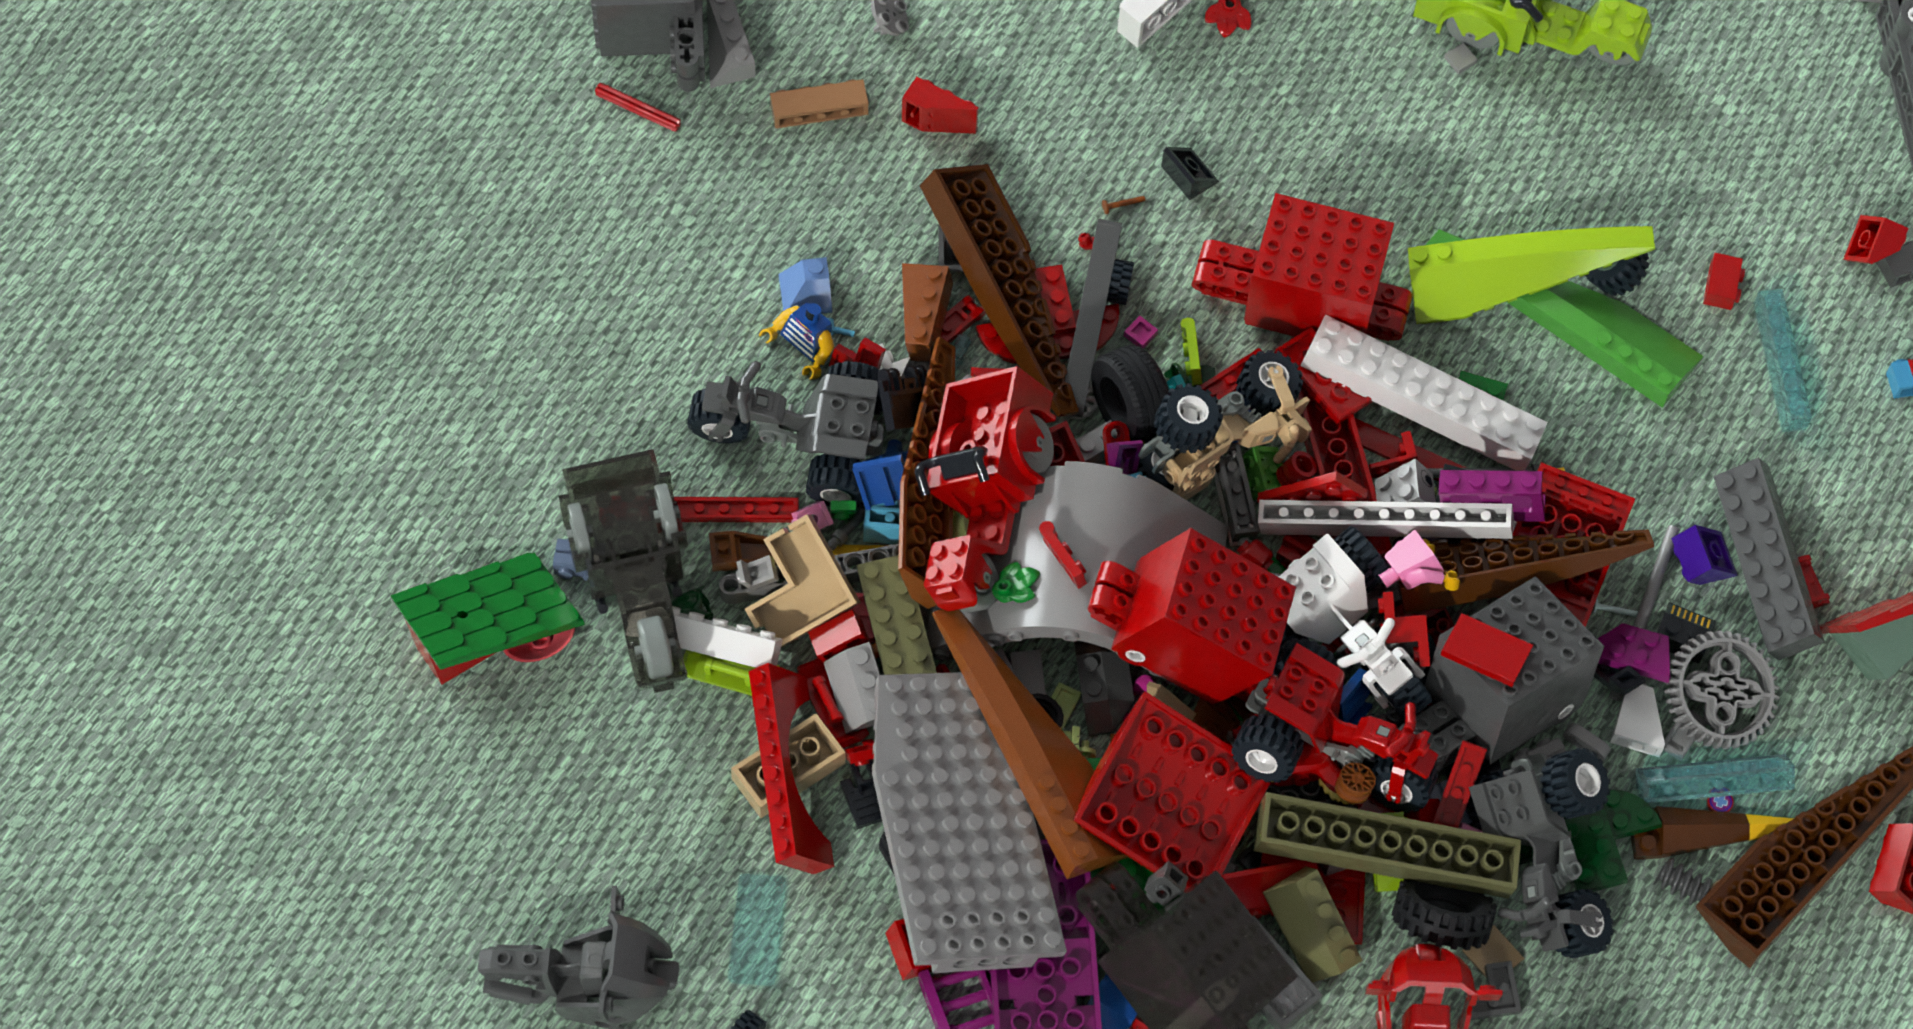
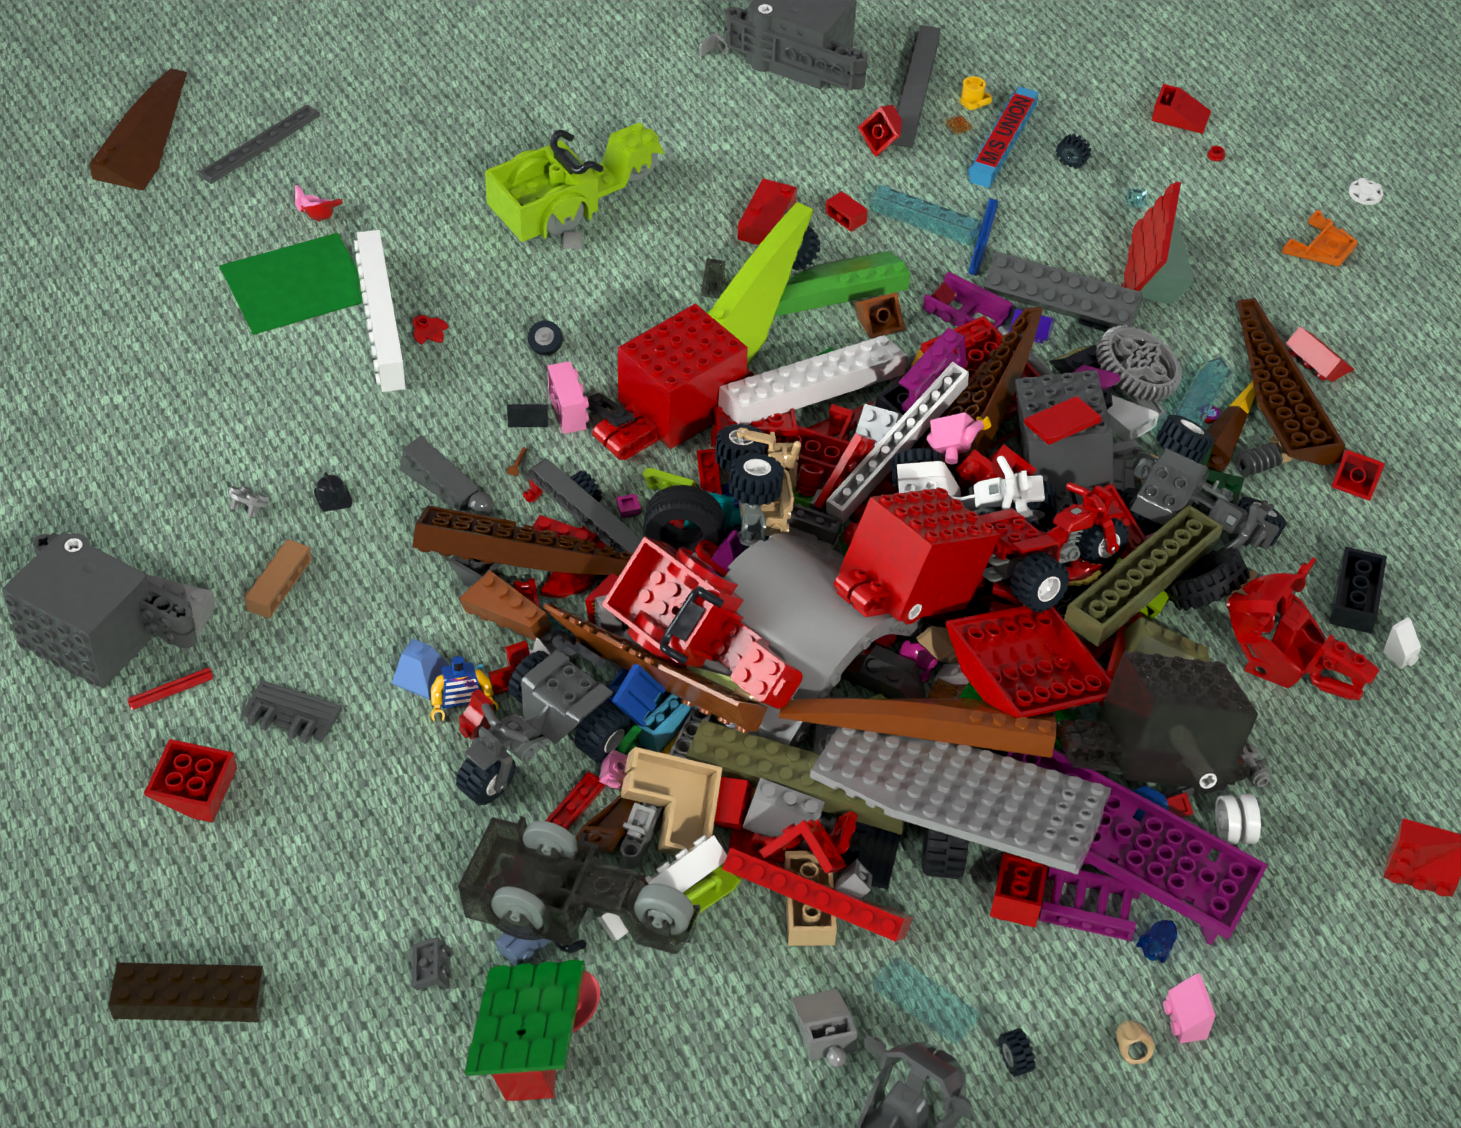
camera: 55 degrees left, 15 degrees down
(344, 339) = (187, 992): none -> dark brown brick
(504, 505) = (431, 964): none -> dark grey bracket
(548, 192) = (192, 779): none -> red slope
(669, 856) = (825, 1026): none -> light grey slope
(687, 218) = (291, 711): none -> dark grey hinge
(782, 368) = (473, 717): none -> red arch
(826, 791) = (854, 880): none -> light grey brick
(827, 722) = (816, 838): none -> red bracket
(937, 109) = (354, 511): red slope -> none
(957, 75) = (332, 493): none -> black piece
(1015, 584) = (800, 647): green plate -> none
(1037, 207) = (481, 503): none -> dark grey piece
(1041, 148) = (436, 473): none -> dark grey wedge
(1063, 554) = (805, 604): red plate -> none
(1165, 884) = (1099, 700): dark grey brick -> none
(1227, 191) = (567, 397): none -> bright pink brick
(1231, 254) = (619, 415): none -> black container
(1298, 121) = (545, 337): none -> black wheel
(1354, 784) = (1091, 559): dark orange wheel -> none
(1510, 218) = (713, 278): none -> clear smoke slope
(1592, 402) = (880, 315): none -> dark orange slope
(1665, 204) = (765, 210): none -> red brick
(1674, 446) = (944, 293): none -> dark red tile
(1693, 482) = (974, 301): none -> magenta window
(1747, 995) = (1358, 475): none -> red slope
(1805, 434) = (983, 237): none -> blue axle

